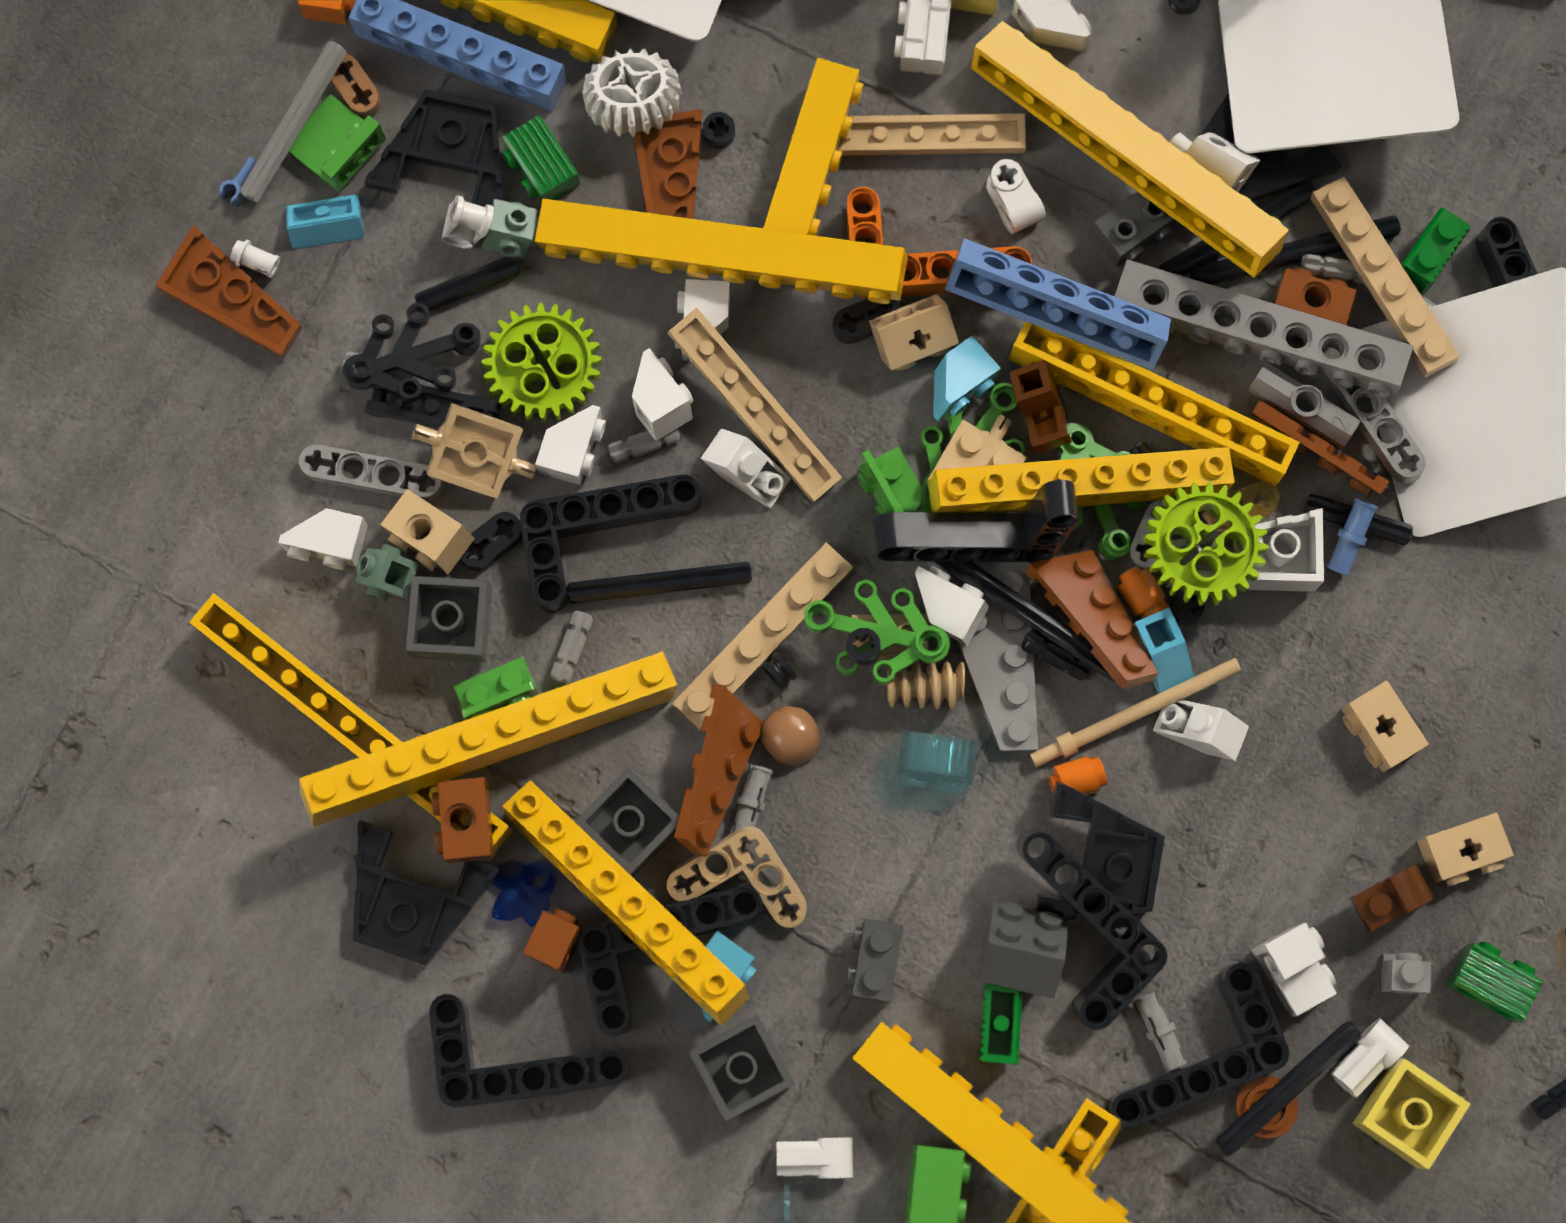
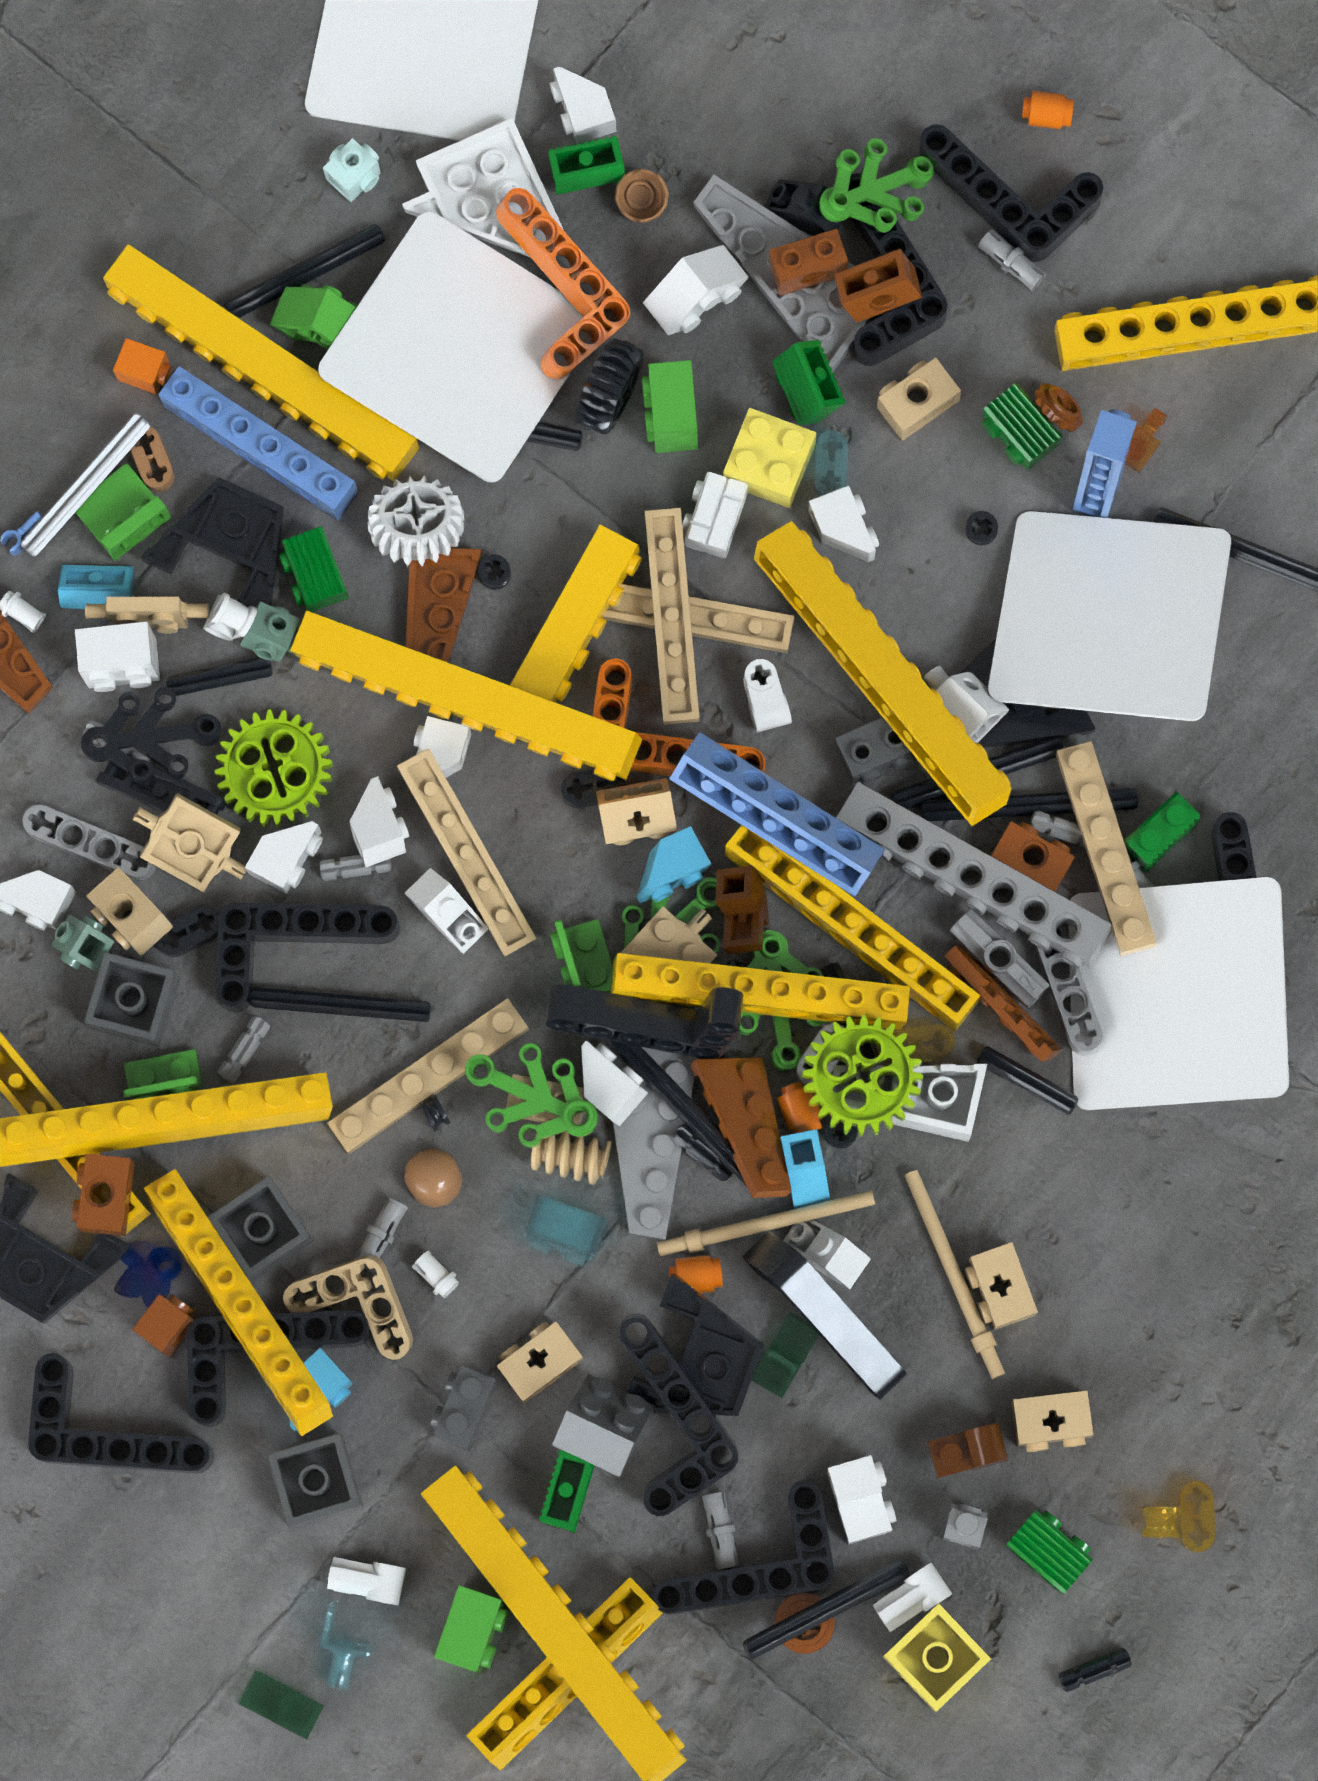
camera: 20 degrees right, 0 degrees up
(361, 280) = (117, 656): none -> white brick
(382, 232) = (161, 613): none -> tan plate
(717, 770) = (366, 1178): dark orange wing -> none
(815, 832) = (435, 1274): none -> white pin
(861, 635) = (514, 1119): black bush -> none
(906, 135) = (672, 616): none -> tan plate
(961, 889) = (560, 1360): none -> tan brick
(1185, 839) = (785, 1355): none -> clear green slope
(1218, 784) = (825, 1312): none -> beam
(1352, 536) = (1014, 1096): medium blue pin -> none
(1377, 785) = (983, 1341): none -> tan bar

